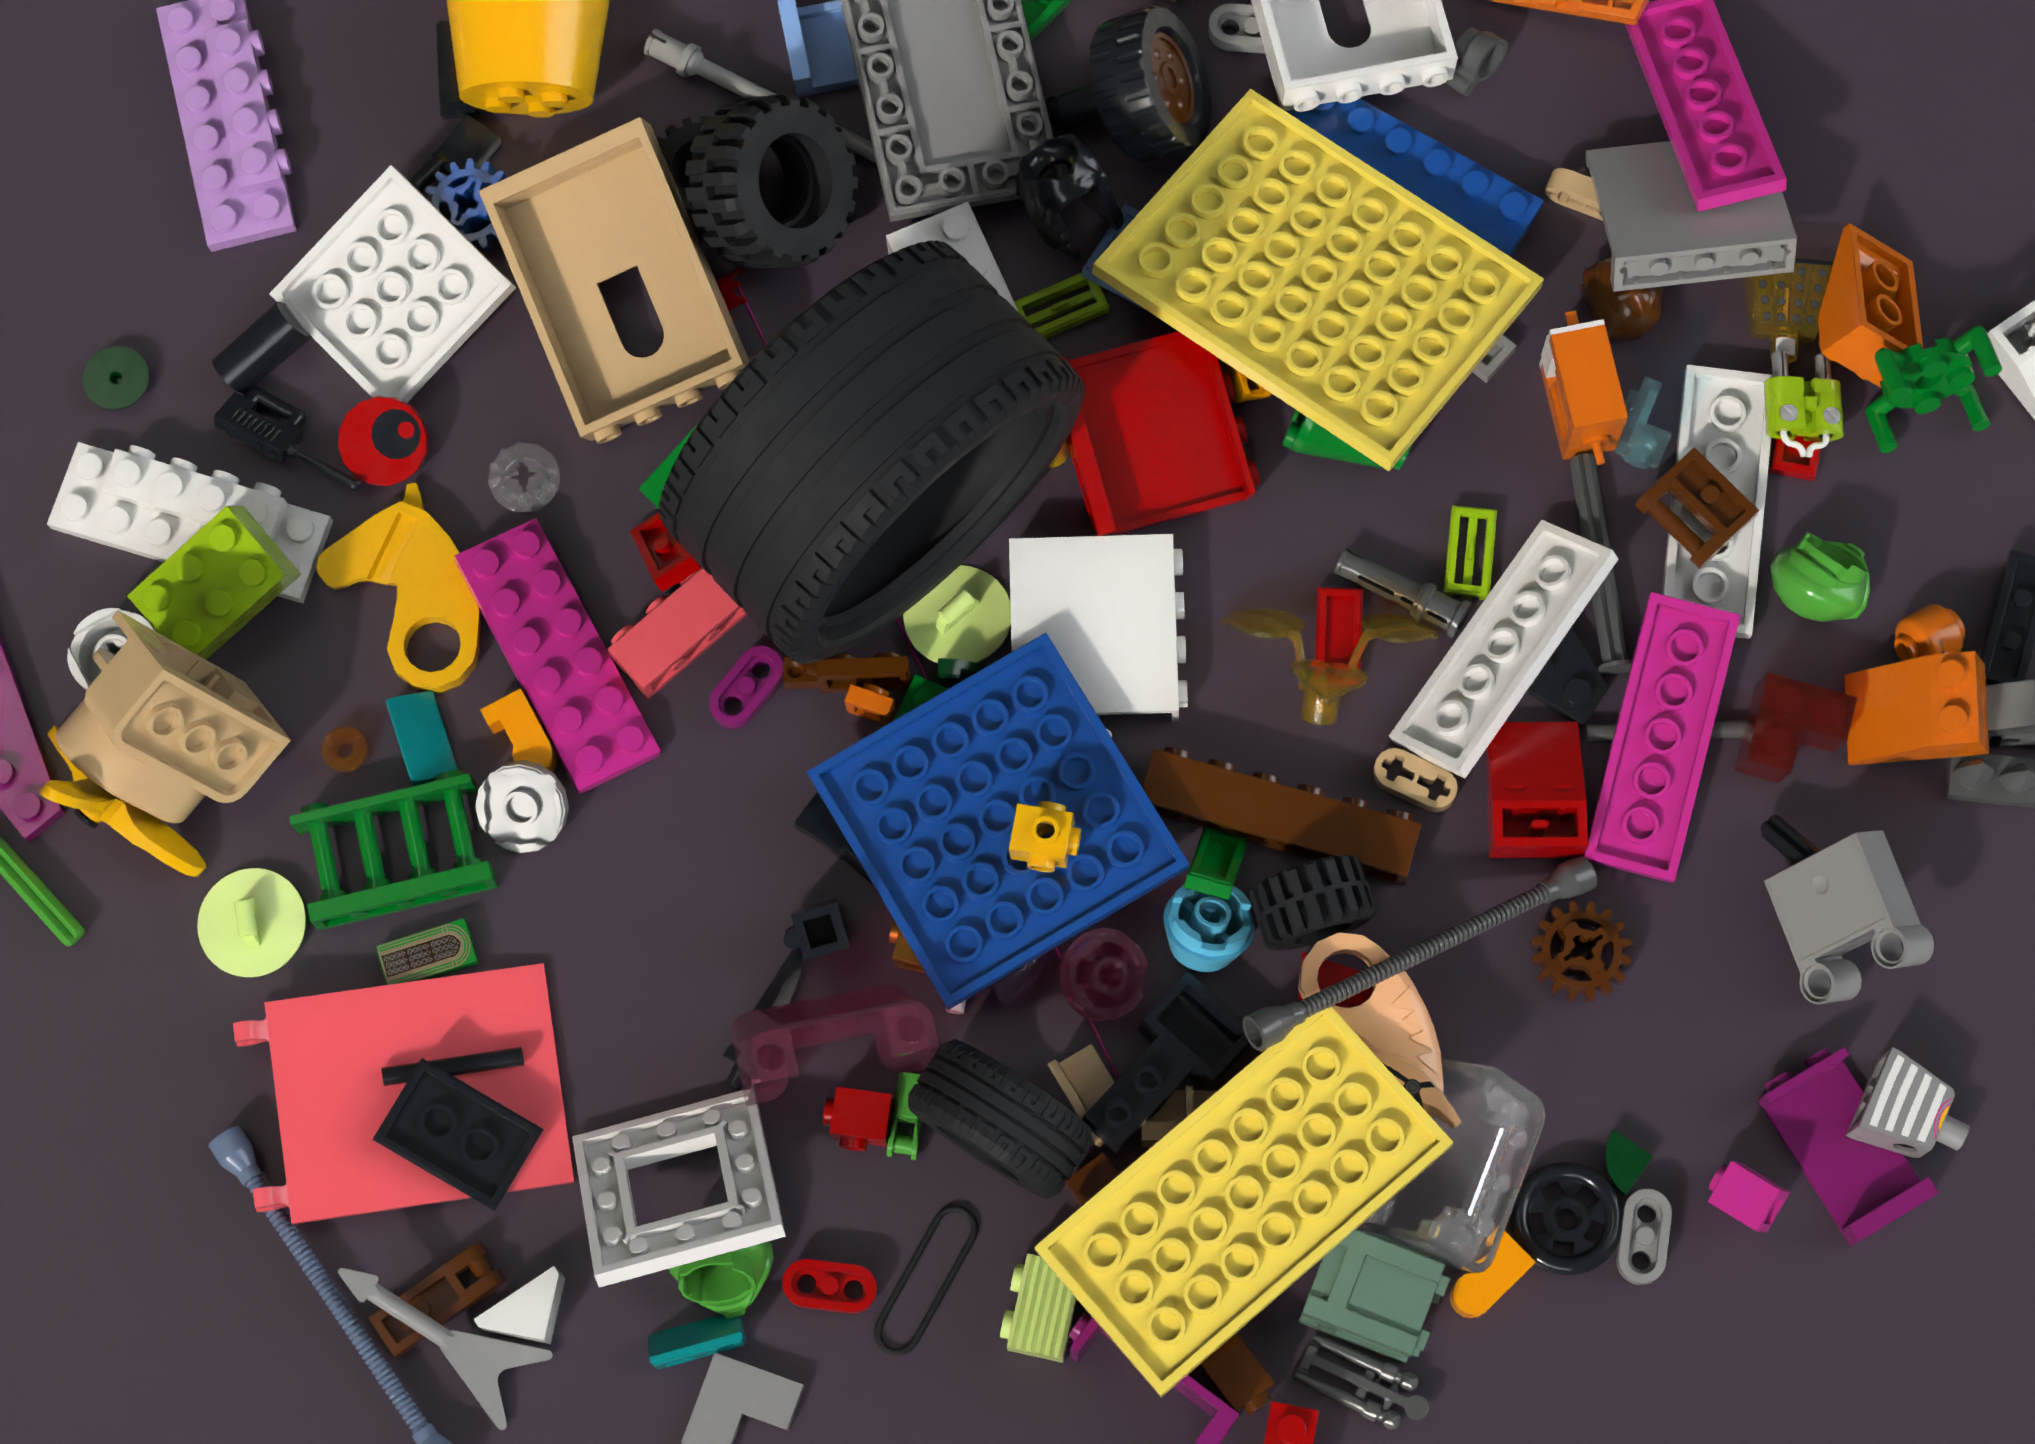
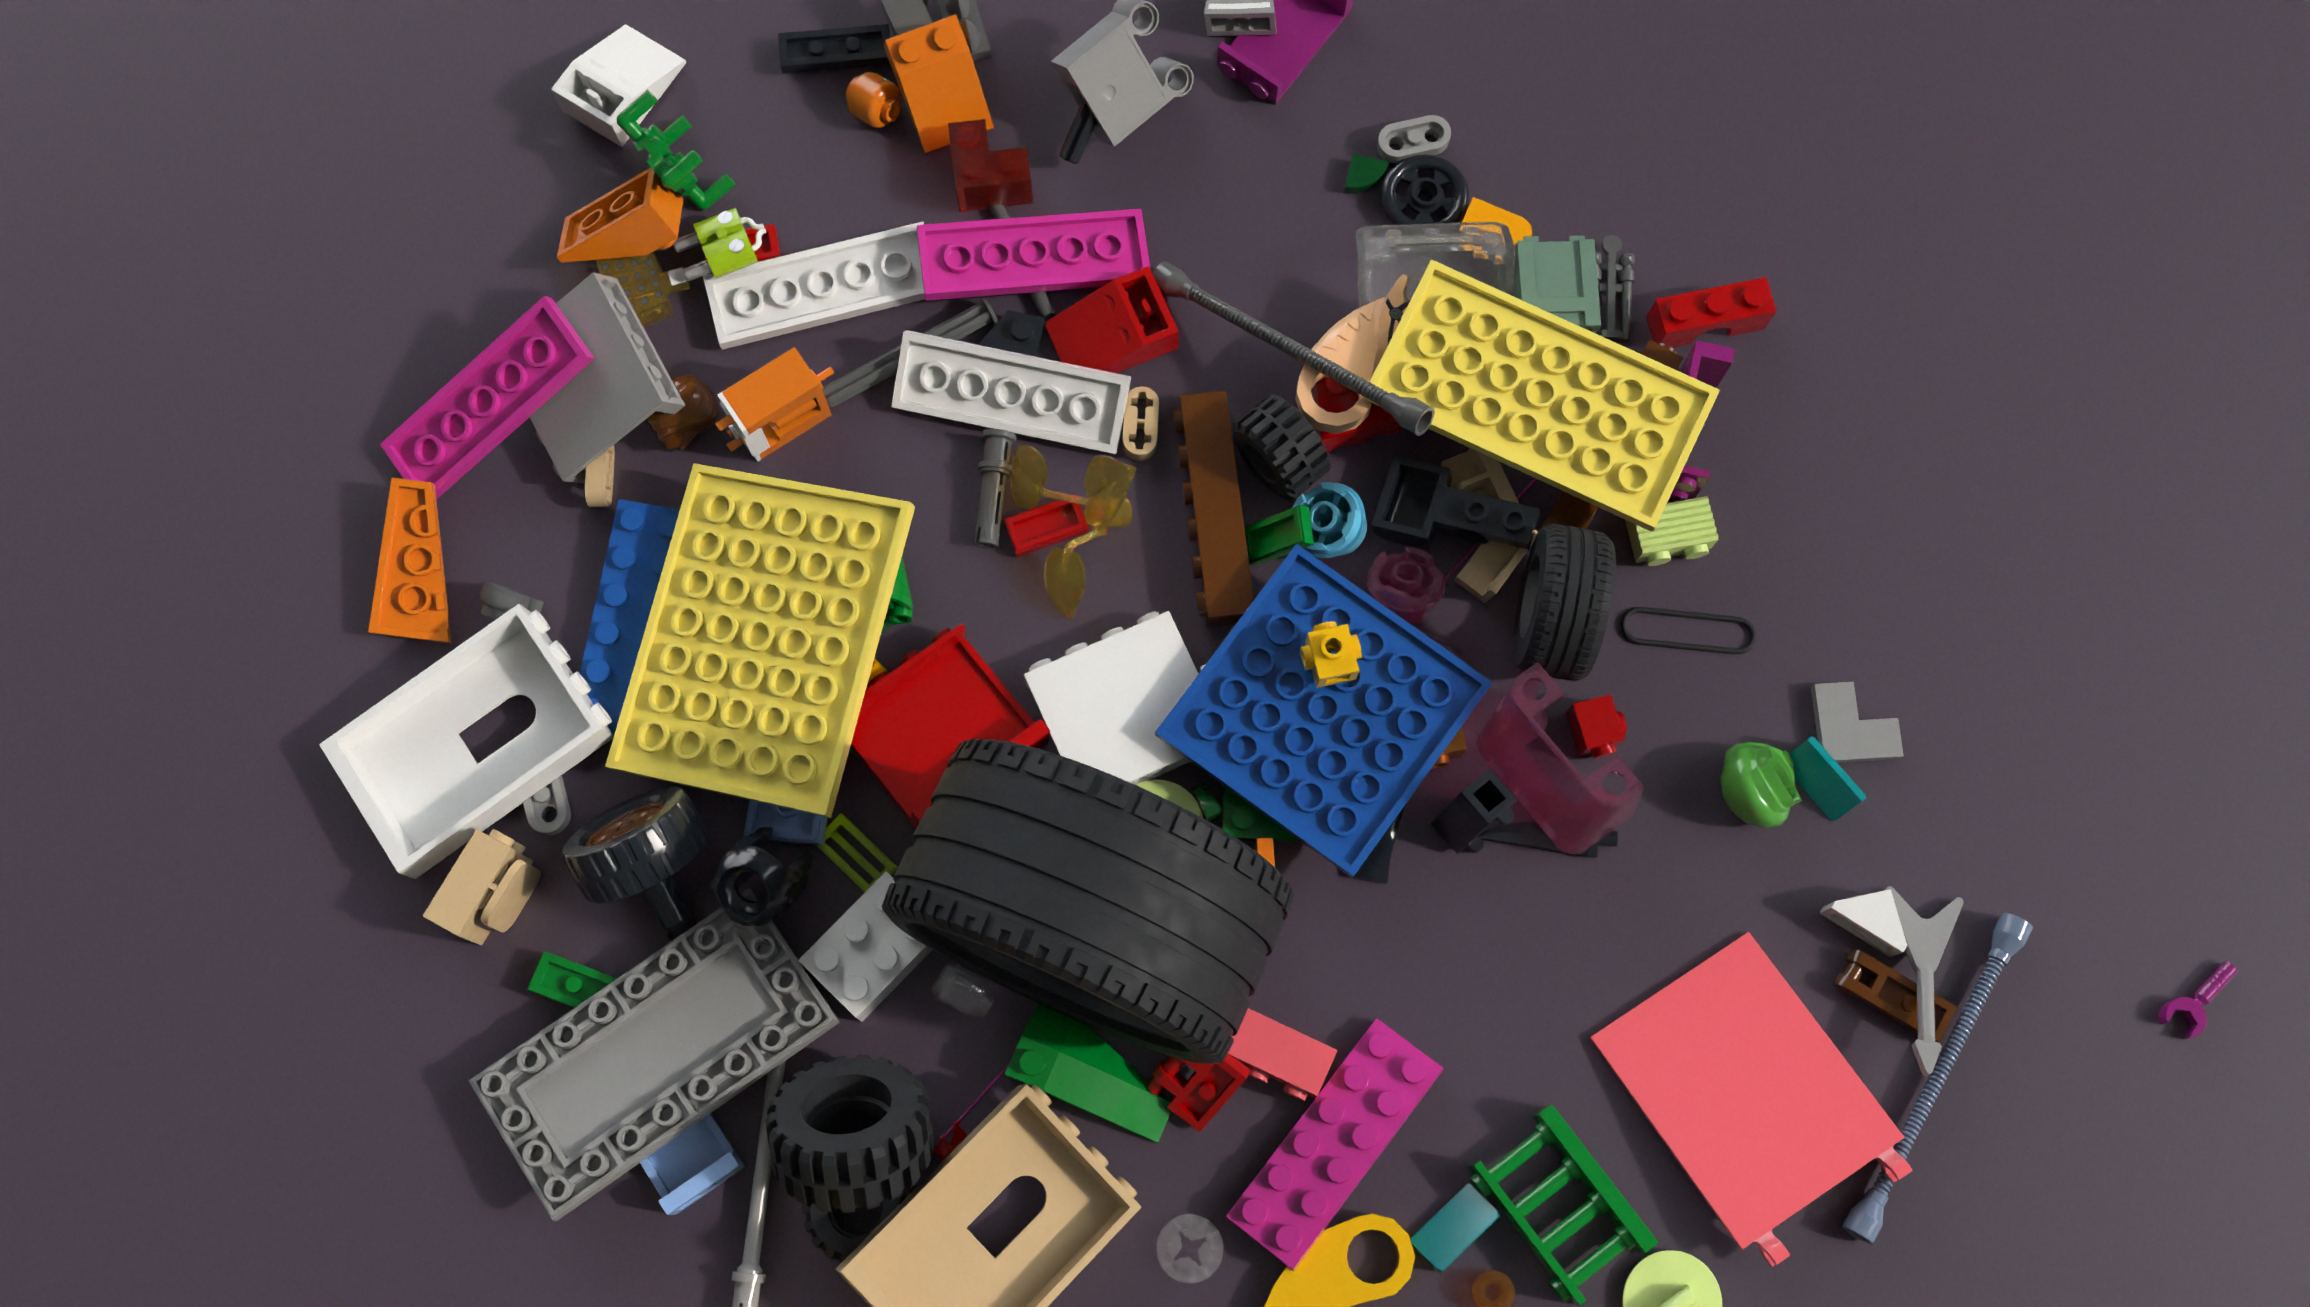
camera: 120 degrees left, 0 degrees up
(428, 953) = (1629, 1137): tile -> none
(458, 1065) = (1714, 1067): black bar -> none
(458, 1134) = (1767, 1035): black tile -> none
(522, 728) = (1409, 1143): light orange leg -> none
(522, 806) = (1476, 1110): tile -> none
(744, 687) = (1292, 968): magenta plate -> none
(749, 1217) = (1806, 836): white plate -> none
(830, 1286) = (1736, 696): red plate -> none
(901, 1113) = (1573, 692): bright green bar -> none
(1466, 589) = (943, 465): lime tile -> none
(1570, 934) = (1225, 240): reddish brown gear -> none
(1641, 442) = (770, 347): clear light blue bracket -> none
(1707, 497) = (828, 284): reddish brown plate -> none
(1747, 1195) = (1355, 76): dark pink brick -> none
(1821, 579) = (859, 187): bright green helmet -> none

